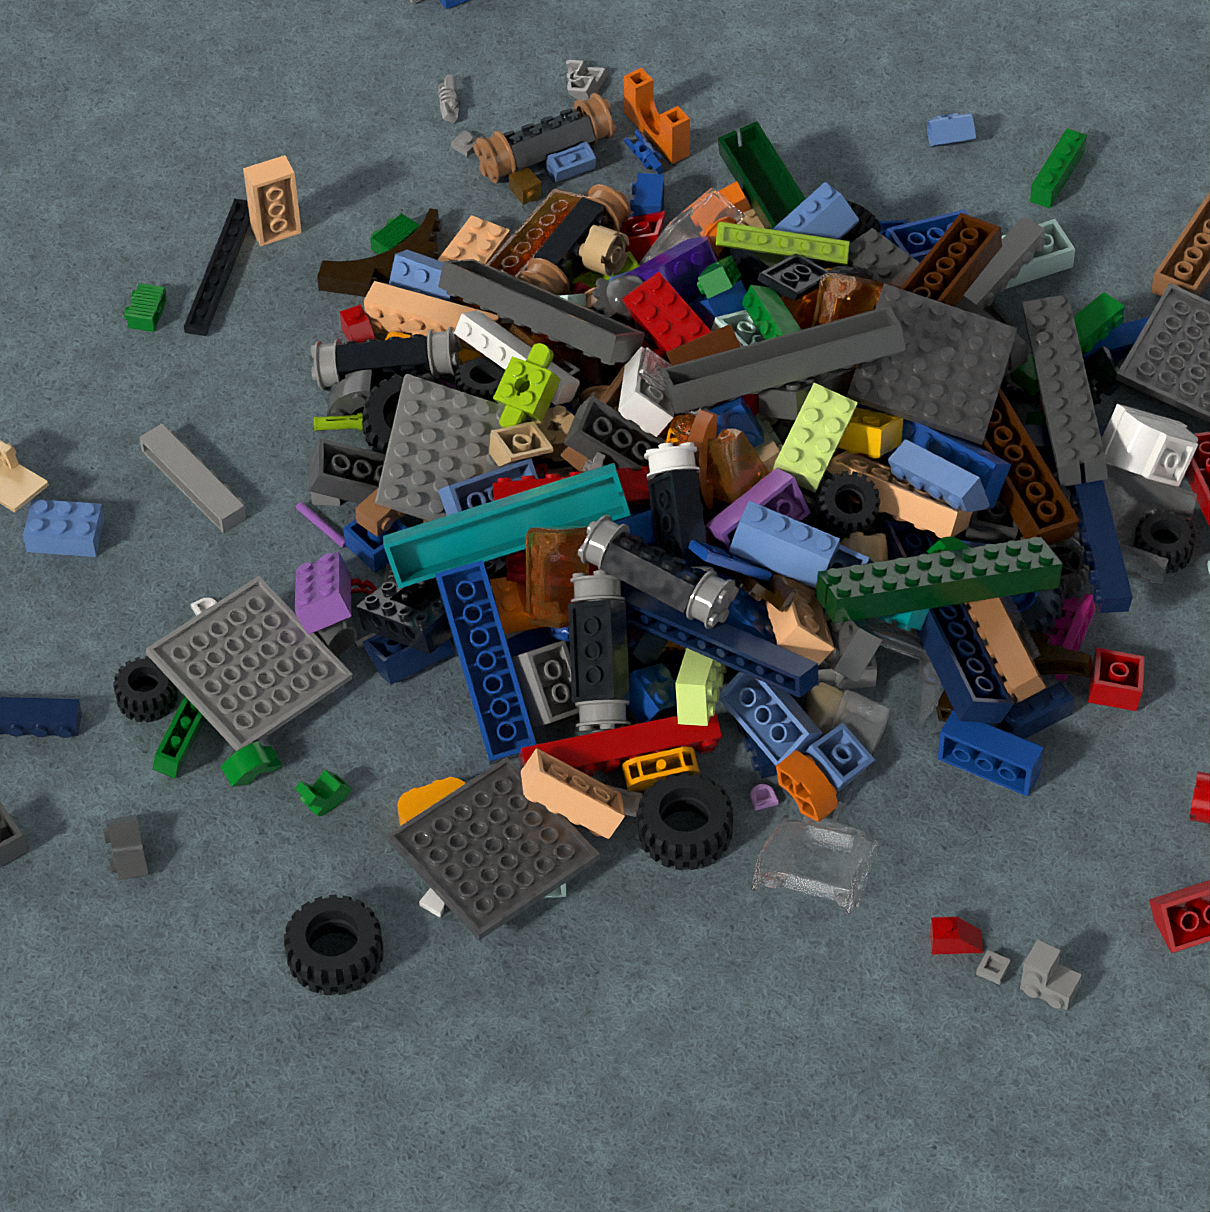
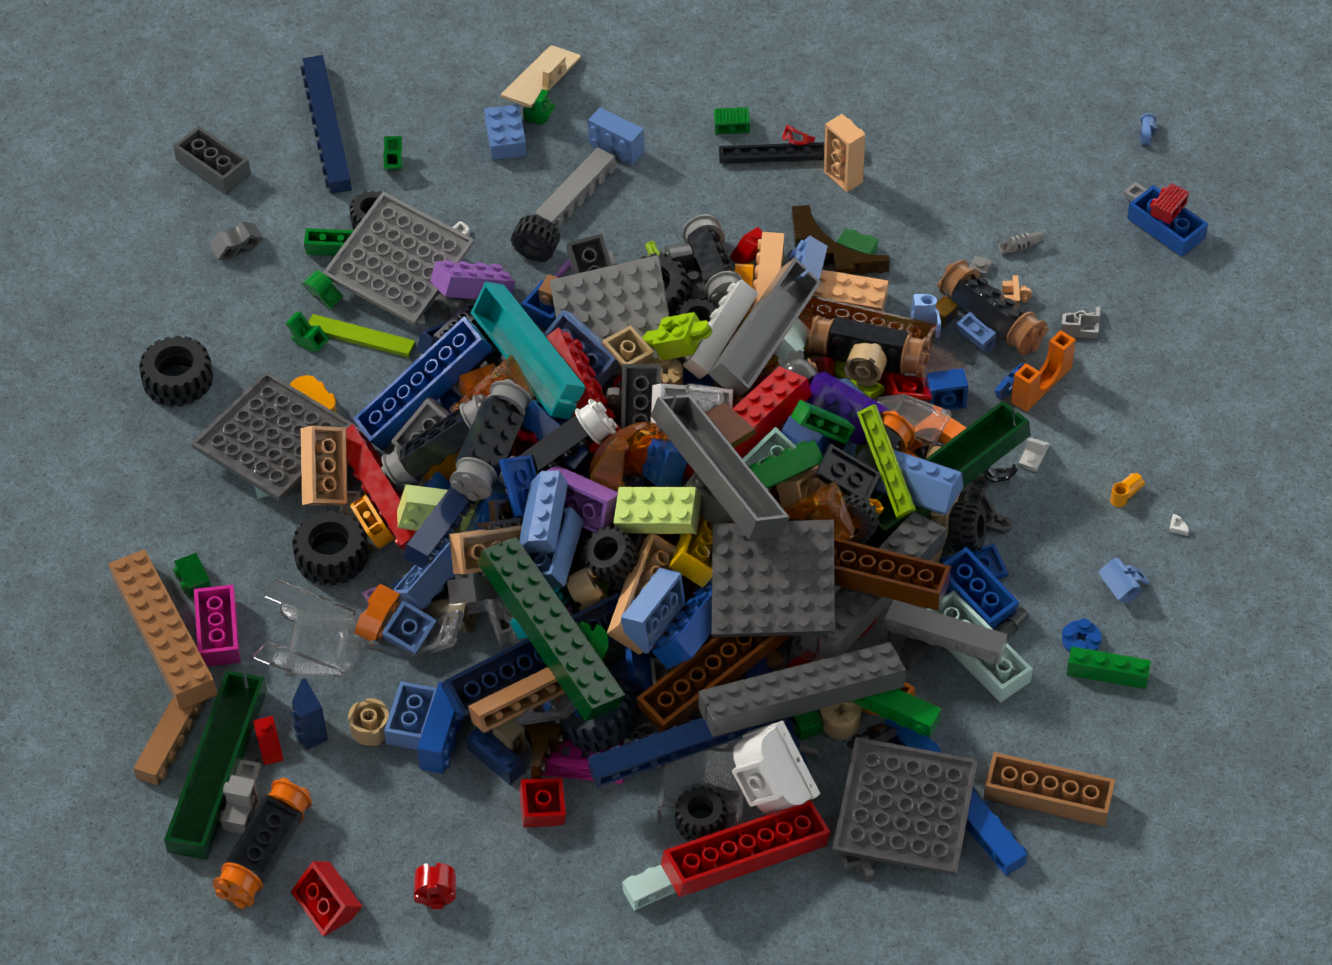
camera: 75 degrees right, 0 degrees up
(47, 470) = (541, 111): none -> green brick
(53, 653) = (392, 153): none -> green brick
(129, 415) = (616, 136): none -> medium blue brick
(183, 258) = (806, 138): none -> red helmet
(269, 523) = (535, 238): none -> black tyre
(342, 737) = (364, 336): none -> lime tile
(516, 118) = (1017, 293): none -> light nougat hips
(532, 191) = (925, 310): none -> light blue piece
(675, 980) = (191, 574): none -> green brick
(763, 1015) = (162, 629): none -> medium nougat brick
(768, 960) = (217, 625): none -> dark pink brick
(829, 100) = (1126, 489): none -> light orange piece
(884, 75) = (1178, 526): none -> white tile
(910, 1035) = (165, 742): none -> medium nougat brick
(945, 876) = (308, 717): none -> dark blue slope
(959, 826) = (368, 722): none -> tan brick
(962, 781) = (408, 715): none -> medium blue brick
(981, 993) = (216, 759): none -> dark green piece
(1002, 174) = (1084, 628): none -> blue plate
(1114, 957) = (262, 843): none -> brick

